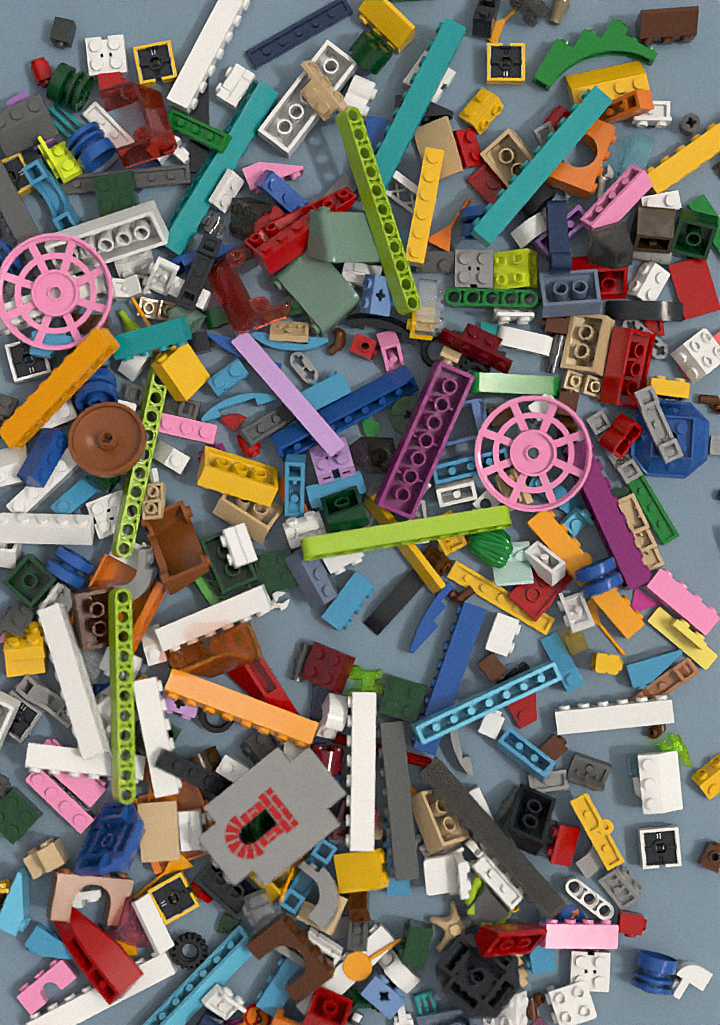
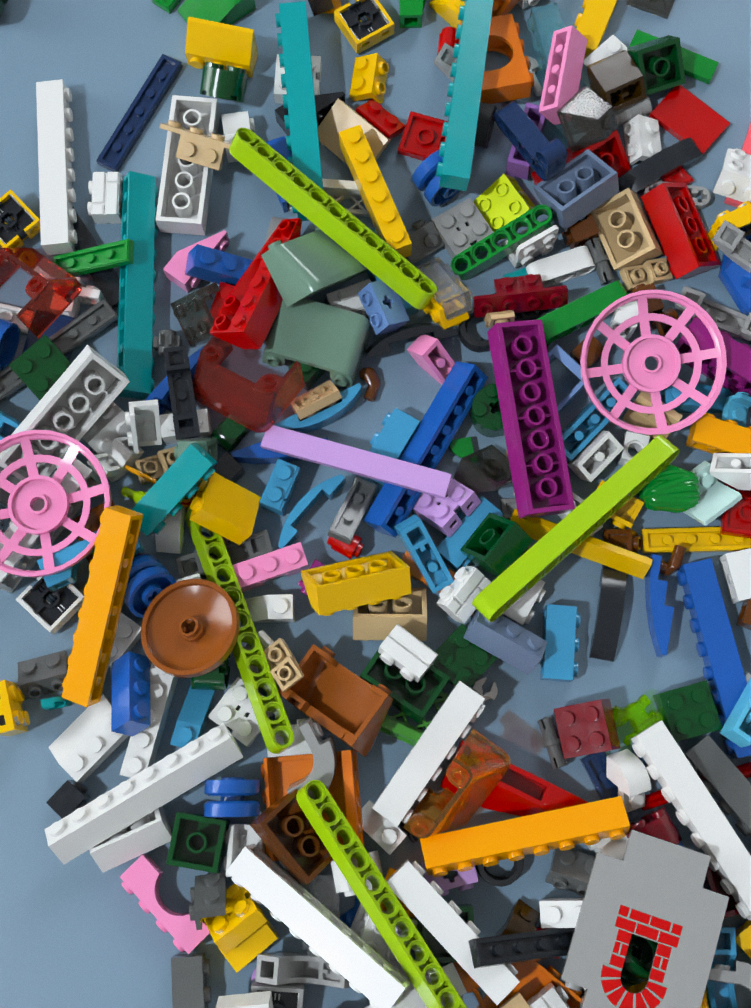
camera: 25 degrees left, 10 degrees down
(225, 191) = (159, 300): white bracket -> none
(233, 421) = (313, 530): red tile -> none
(307, 364) = (351, 435): light grey beam -> none
(364, 347) = (402, 371): red brick -> none
(443, 237) = (412, 216): orange piece -> none
(507, 155) = (424, 101): tan slope -> none
(530, 230) = (494, 156): white brick -> none
(620, 436) = (724, 296): red brick -> none

